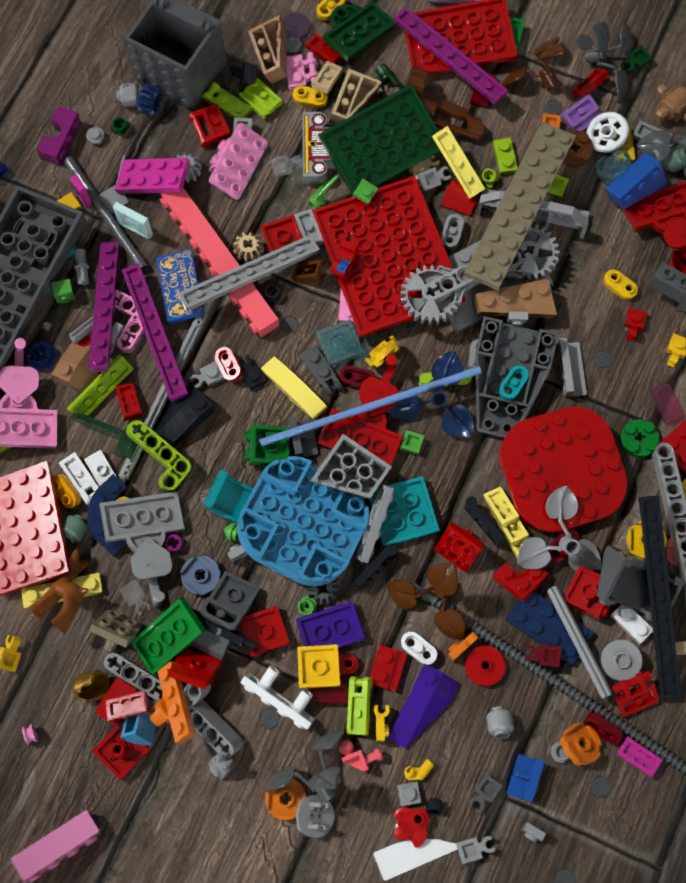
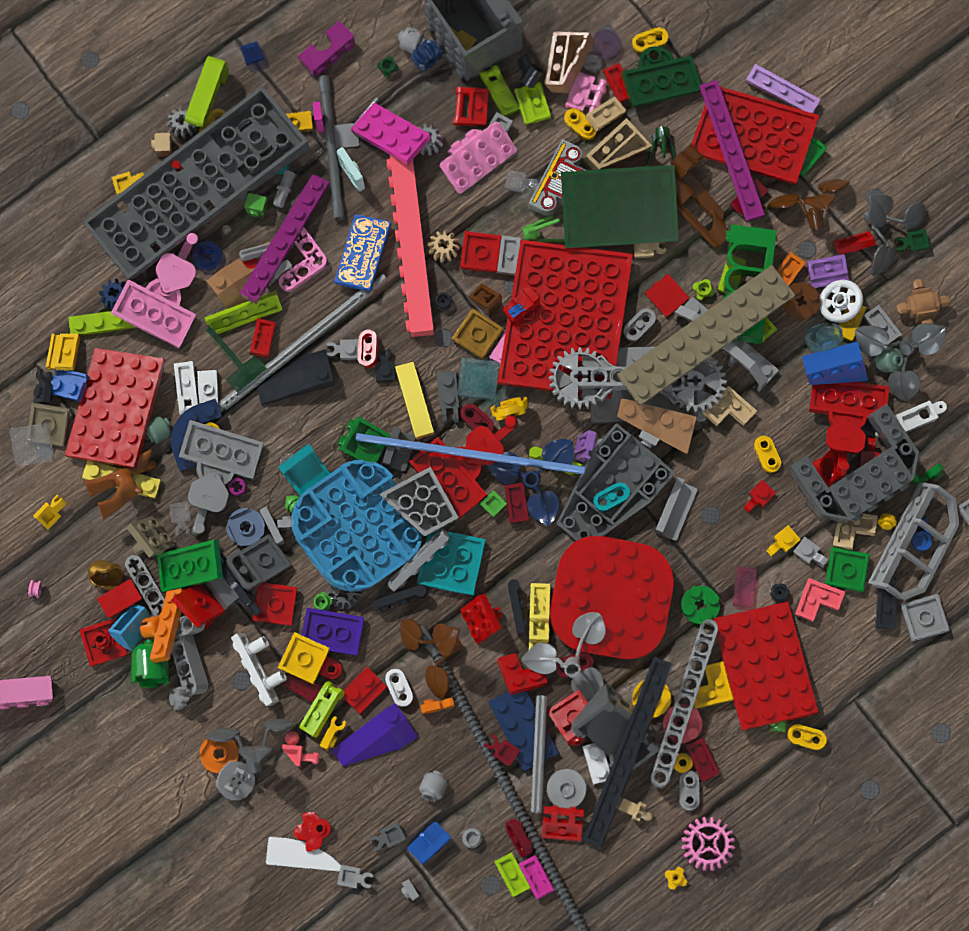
camera: 30 degrees right, 5 degrees up
(66, 491) = (167, 393): light orange plate -> none
(95, 135) = (360, 64): light grey plate -> none
(127, 706) = (126, 607): plate -> none
(155, 332) = (317, 286): magenta plate -> none
(155, 452) = (262, 397): lime beam -> none
(176, 756) = (144, 670): none -> green cylinder
(224, 562) = (272, 527): none -> light grey tile
(248, 273) = (429, 273): light grey plate -> none
(317, 306) = (477, 334): none -> pearl gold plate
(365, 191) = (577, 247): bright green plate -> none
(409, 794) = (324, 804): light grey plate -> none
(418, 773) = (342, 792): yellow arm -> none
(431, 178) = (648, 263): light grey plate -> none
(432, 431) = (516, 503): none -> dark red plate
(434, 806) = (339, 826): black plate -> none
(458, 162) = (679, 262): light yellow plate -> none
(466, 350) = (584, 445): none -> medium lavender plate
(482, 676) = (455, 740): red plate -> none
(511, 116) = (752, 240): none -> green fence
(569, 258) = (730, 404): none -> tan plate
(572, 748) = (481, 840): orange plate -> none
(617, 766) = (512, 874): none -> lime plate

